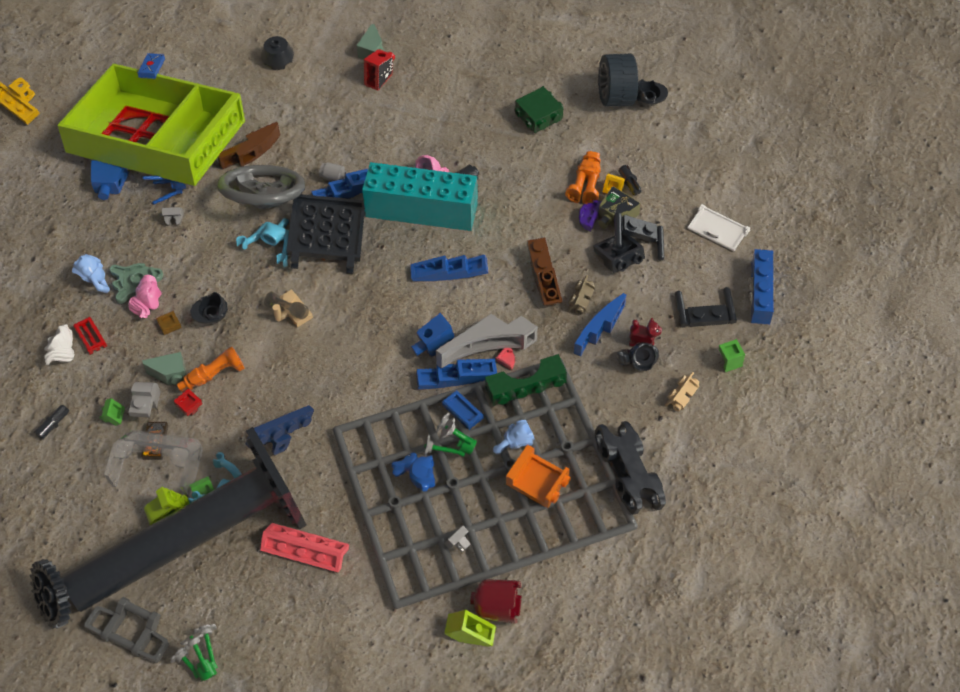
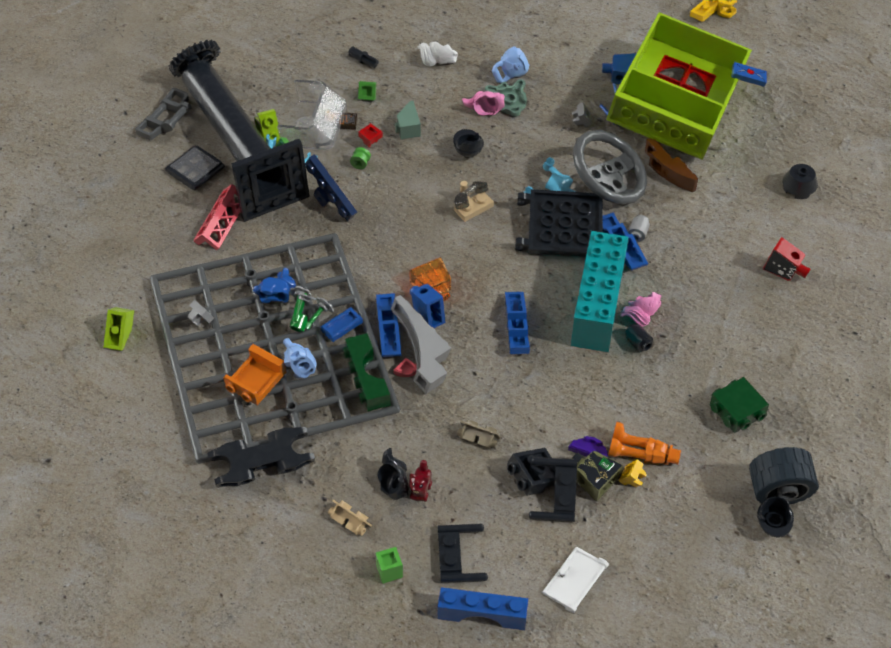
camera: 90 degrees right, 5 degrees down
(96, 346) = (450, 74): red tile -> none
(144, 398) = (379, 103): light grey brick -> none
(168, 323) = (461, 122): pearl gold tile -> none
(205, 373) = (407, 154): orange piece -> none
(205, 668) = (121, 158): plant -> none
(220, 586) = (195, 167): none -> clear piece
(221, 412) = (360, 158): none -> bright green wheel
(369, 42) = (825, 258): sand green slope -> none
(398, 336) = (434, 274): none -> clear orange torso
(497, 600) = (136, 345): dark red cylinder -> none
(544, 272) = (502, 402): reddish brown slope -> none
(601, 322) = (444, 451): blue slope -> none
(630, 179) = (641, 491): black axle -> none

